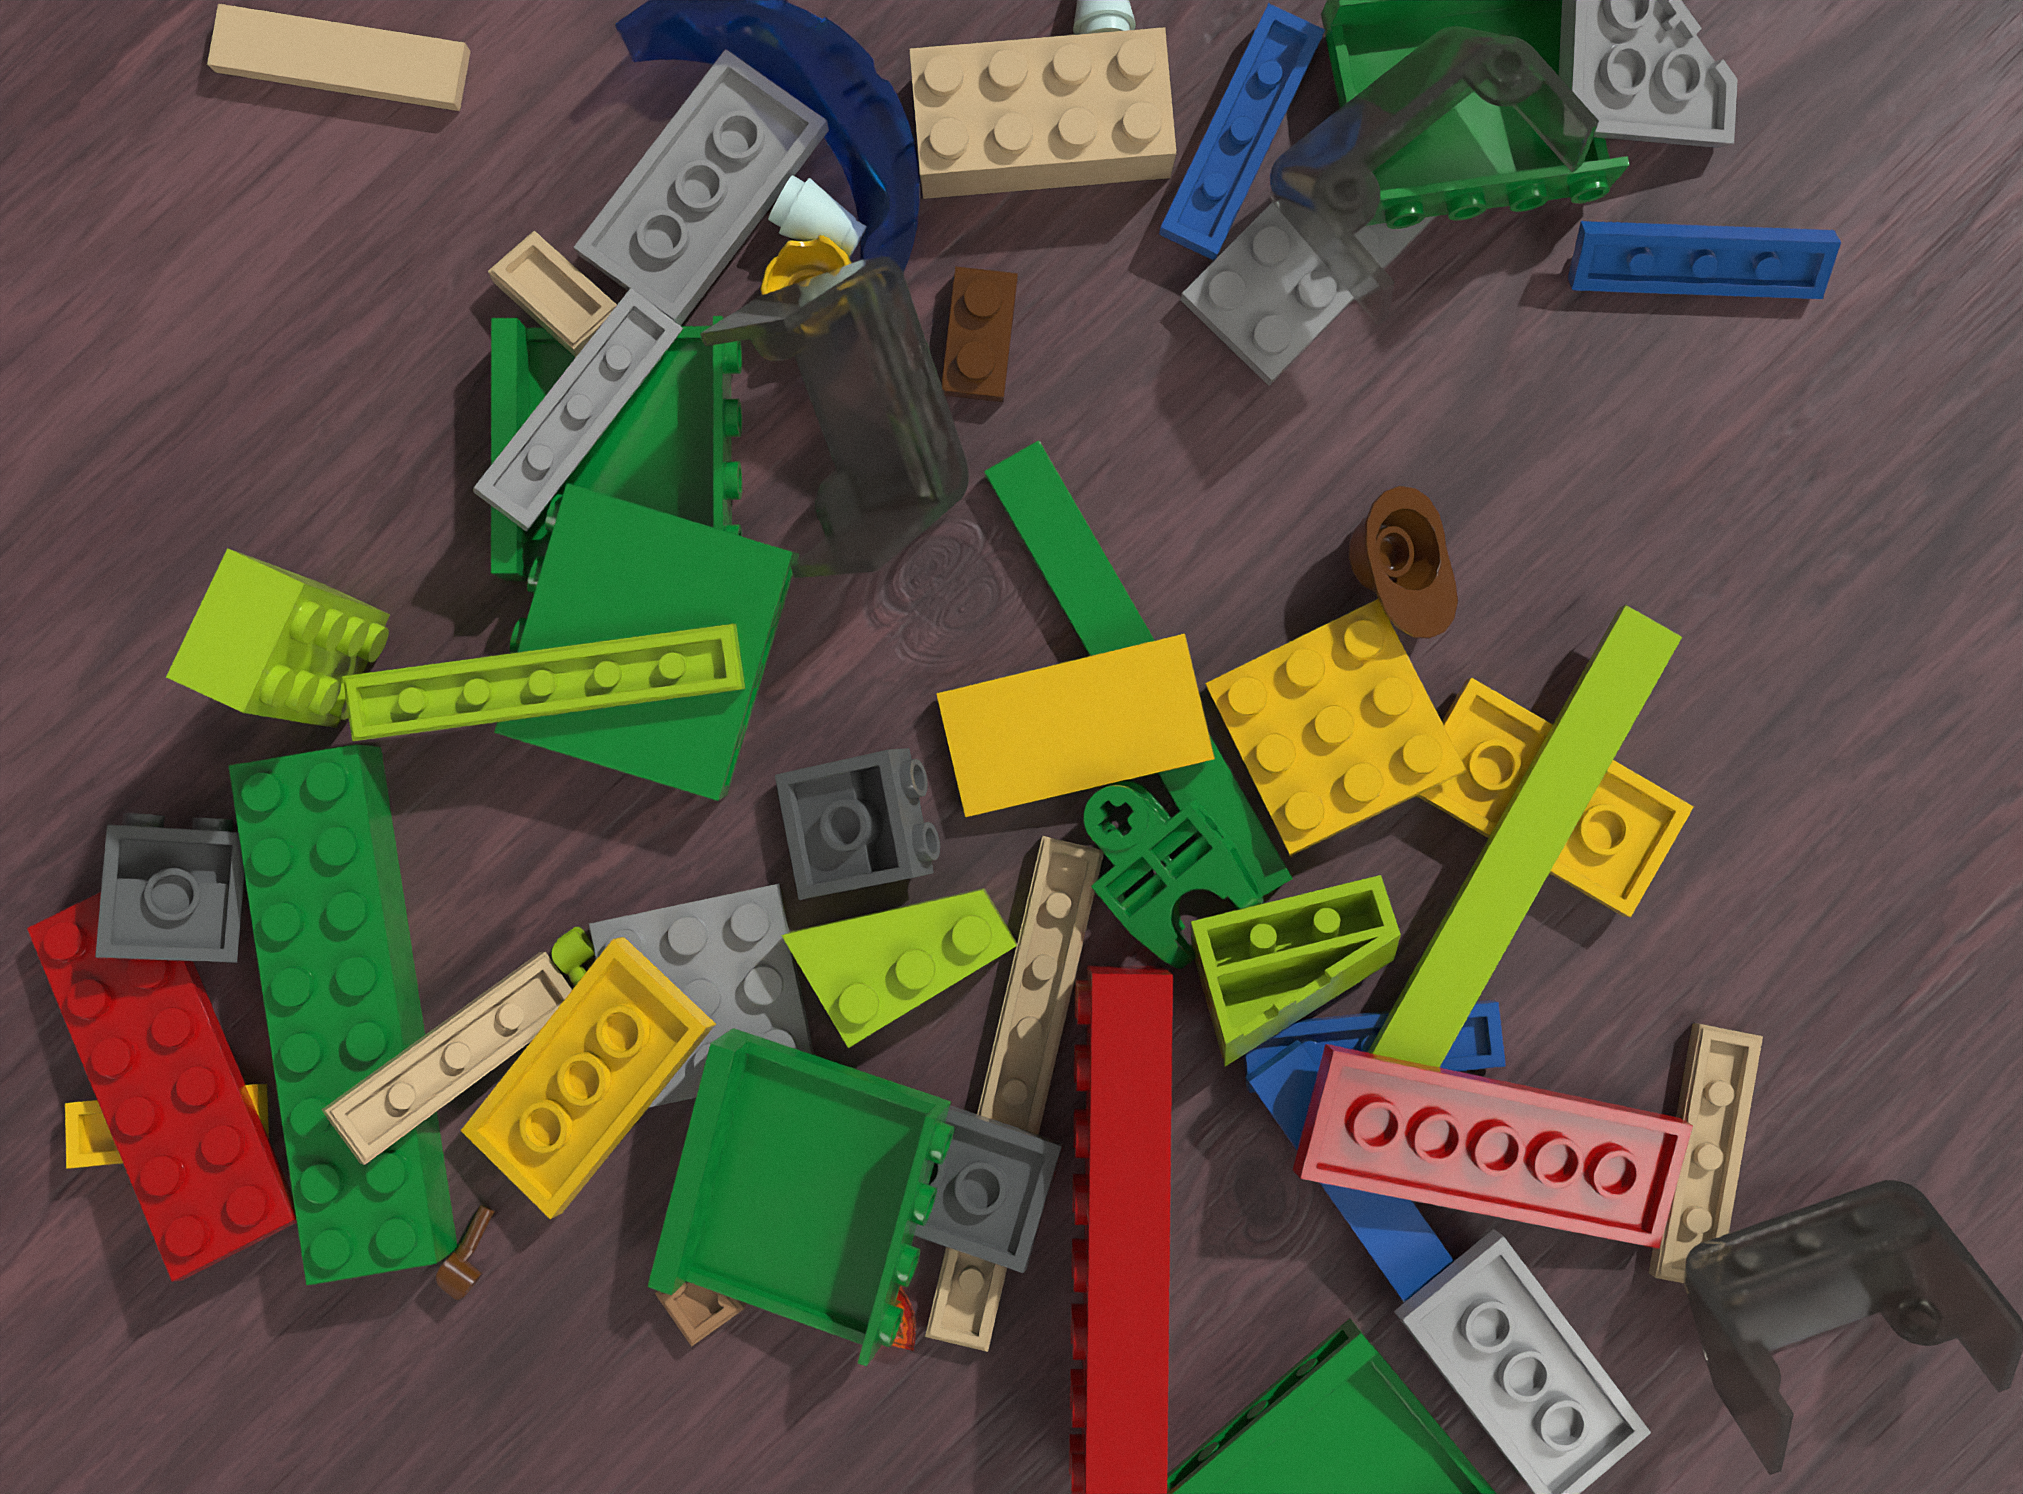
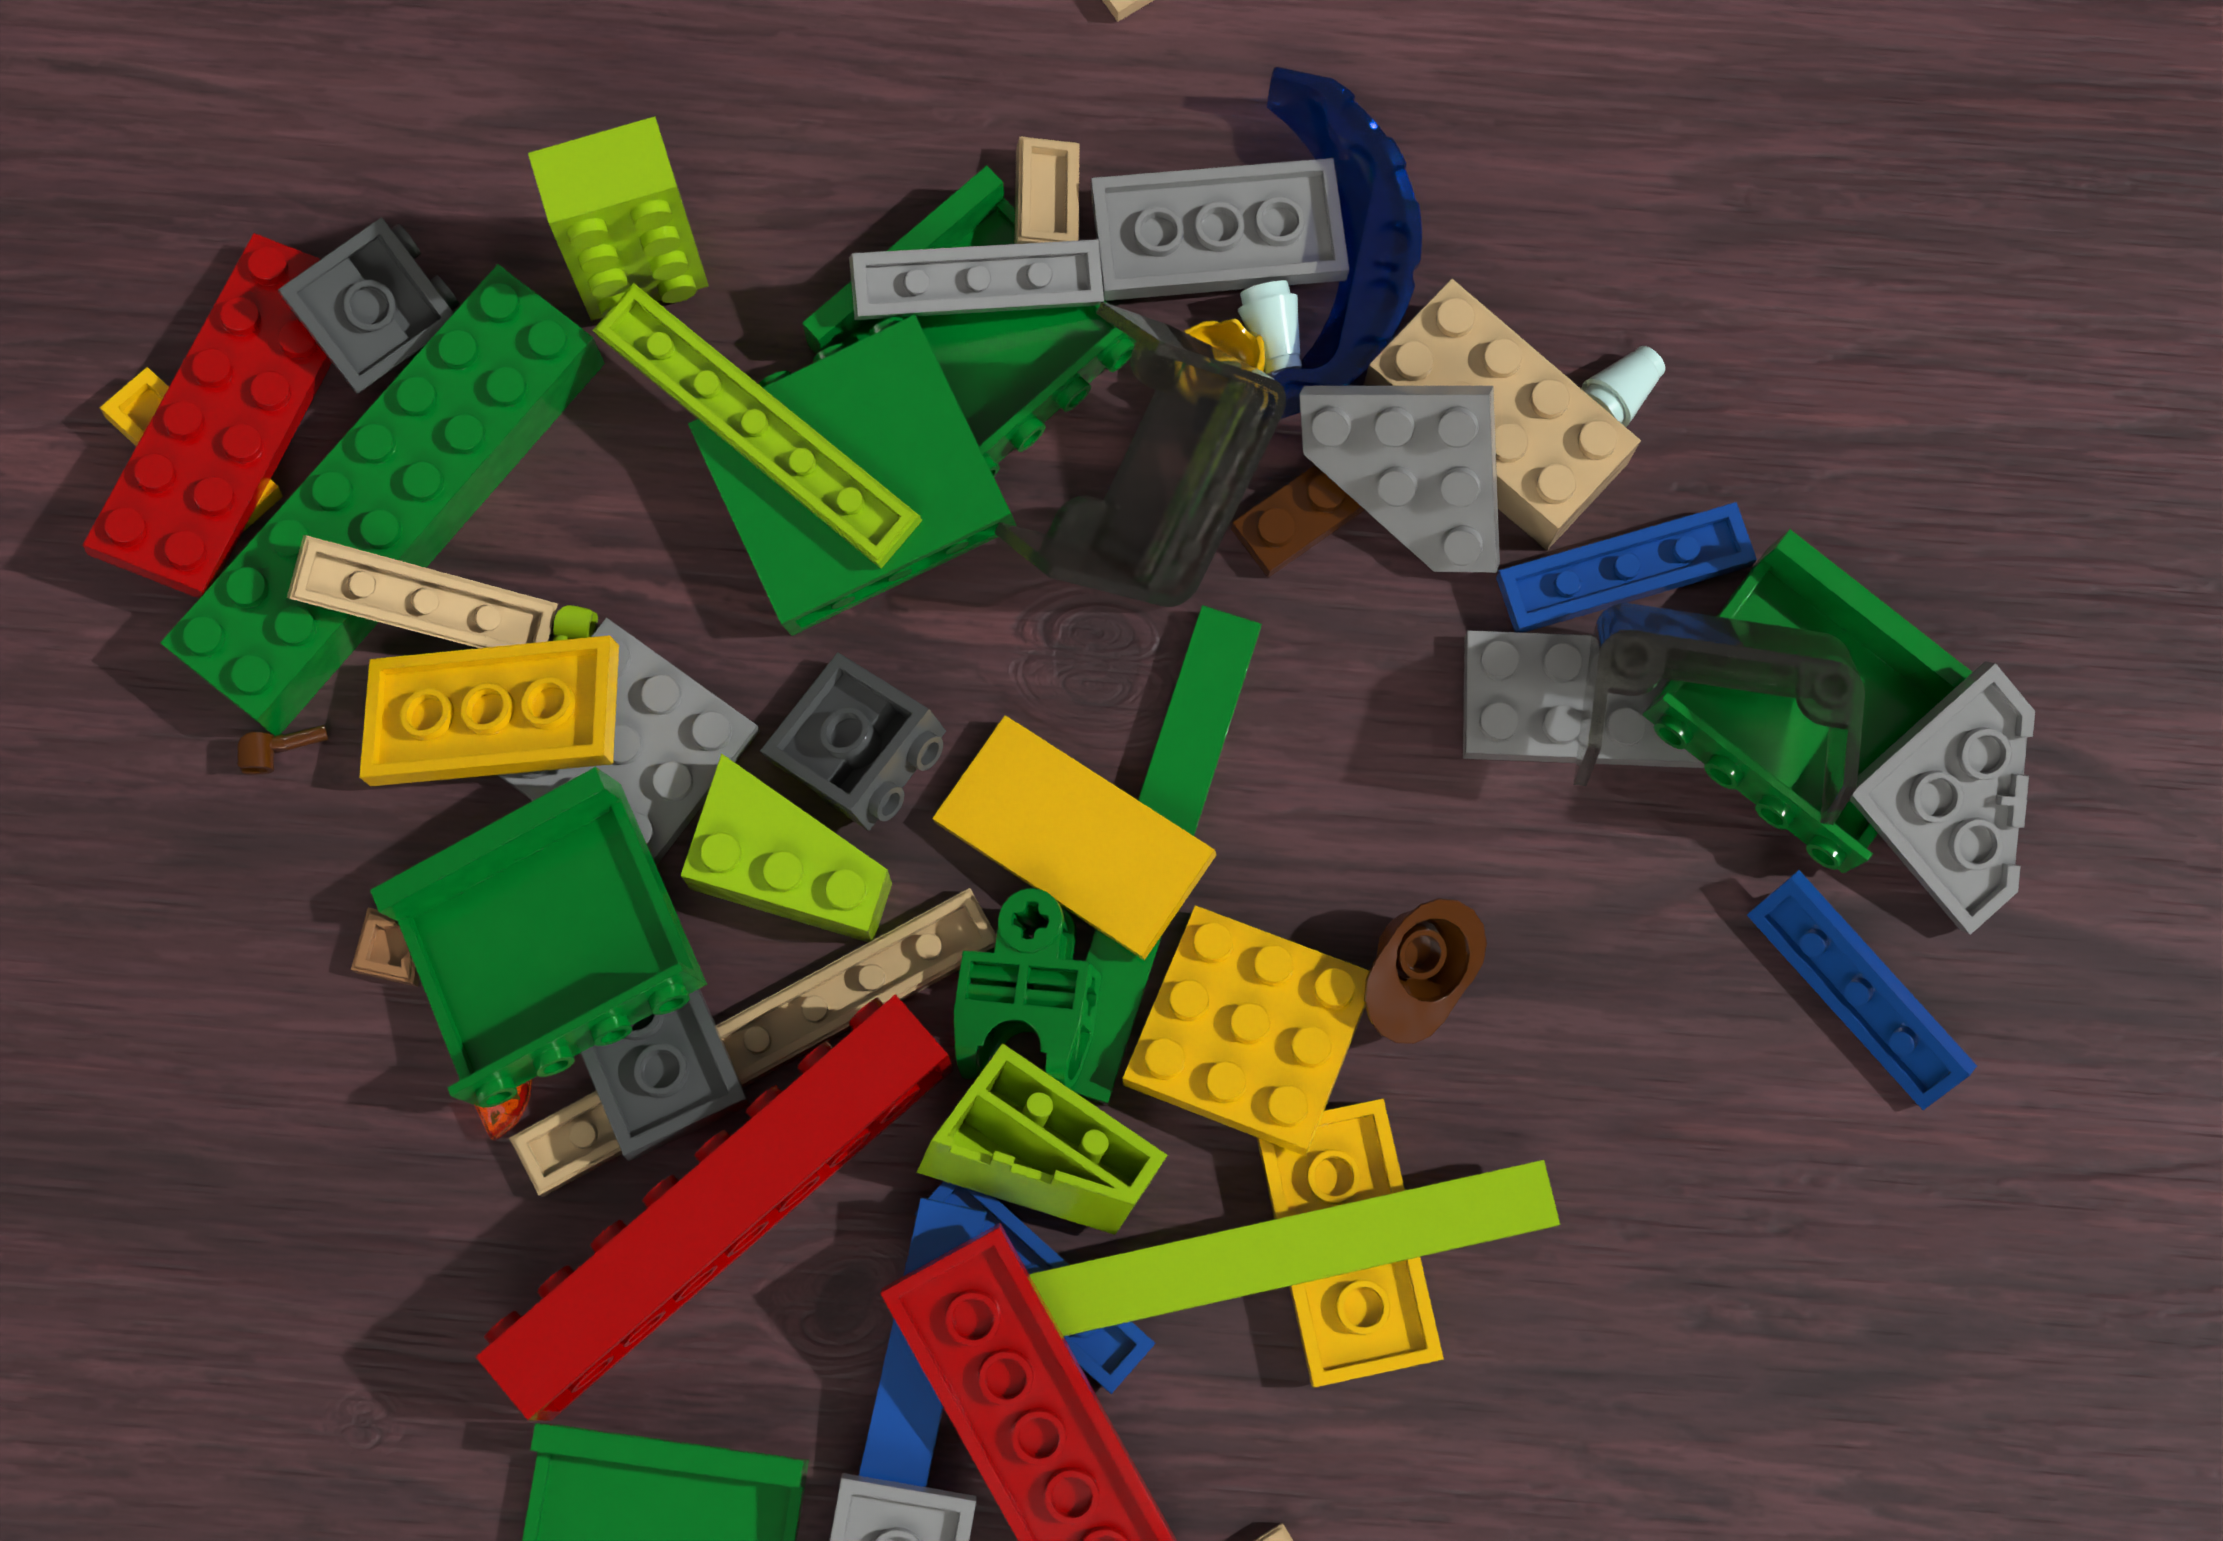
camera: 45 degrees right, 10 degrees down
(1026, 213) = (1414, 463): none -> light grey plate

